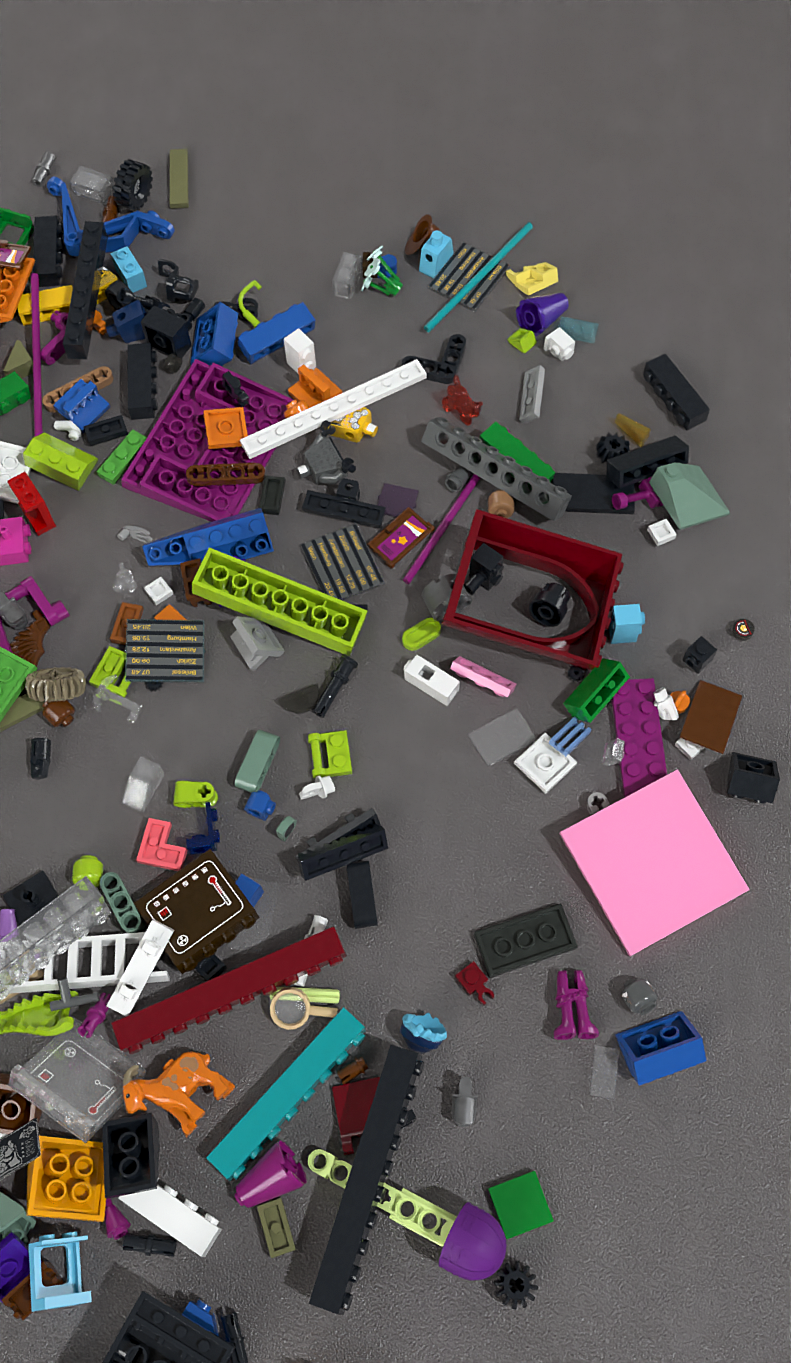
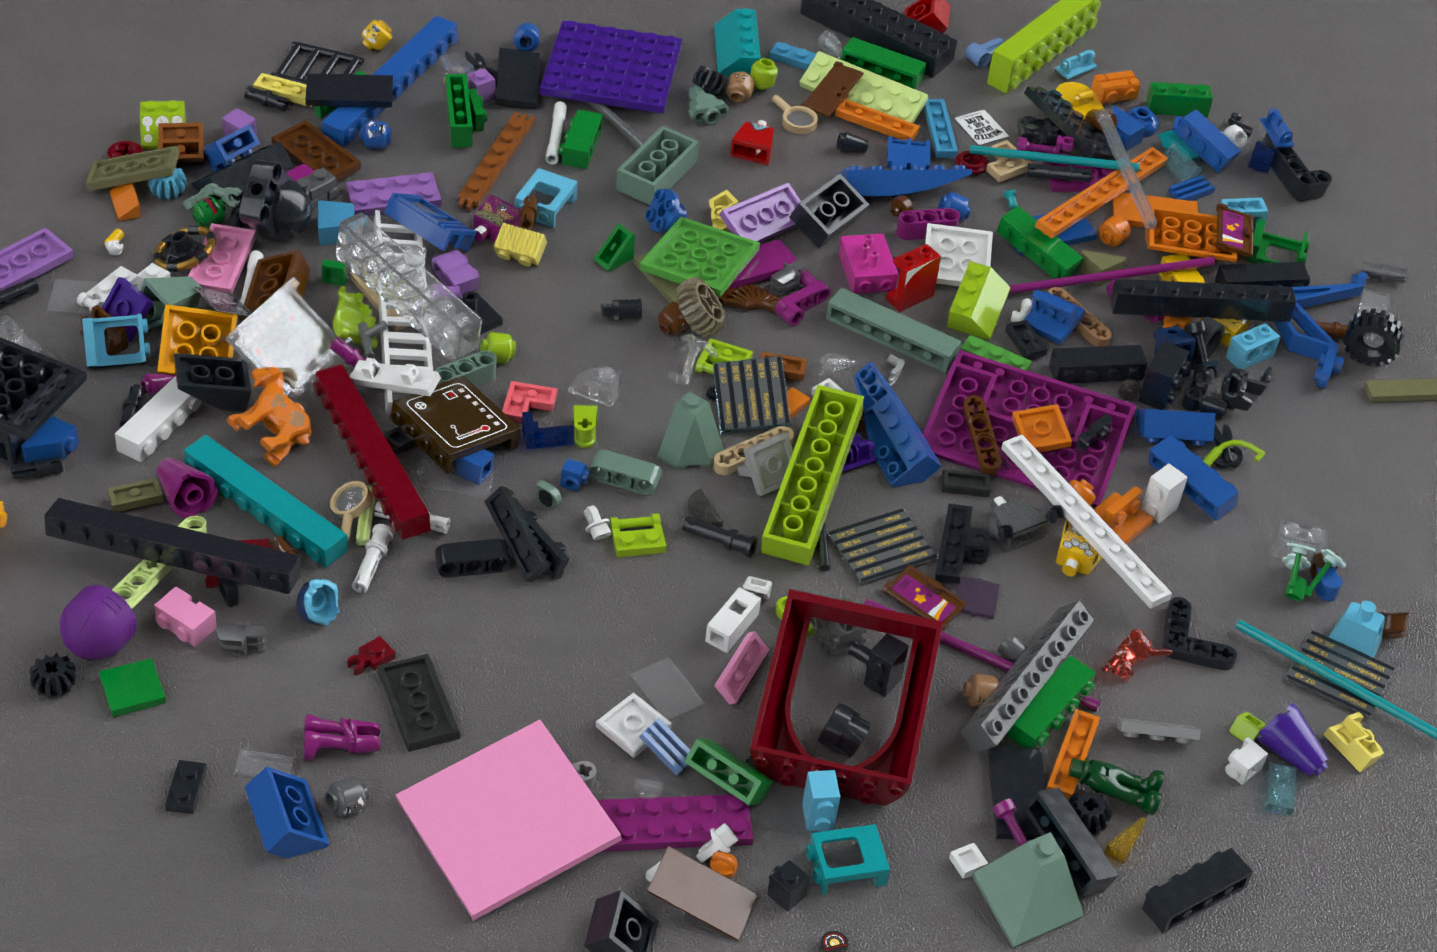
camera: 80 degrees right, 20 degrees down
(86, 530) = (893, 330): none -> sand green brick
(222, 703) = (690, 435): none -> sand green slope
(232, 653) = (731, 454): none -> tan beam
(350, 983) = (375, 550): none -> white pin
(398, 658) = (758, 586): none -> white slope
(436, 1166) = (184, 618): none -> bright pink brick
(559, 452) = (1076, 745): none -> orange plate
(587, 434) = (1119, 783): none -> dark green piece
(631, 1142) = (186, 787): none -> black plate
(677, 591) = (871, 848): none -> teal window

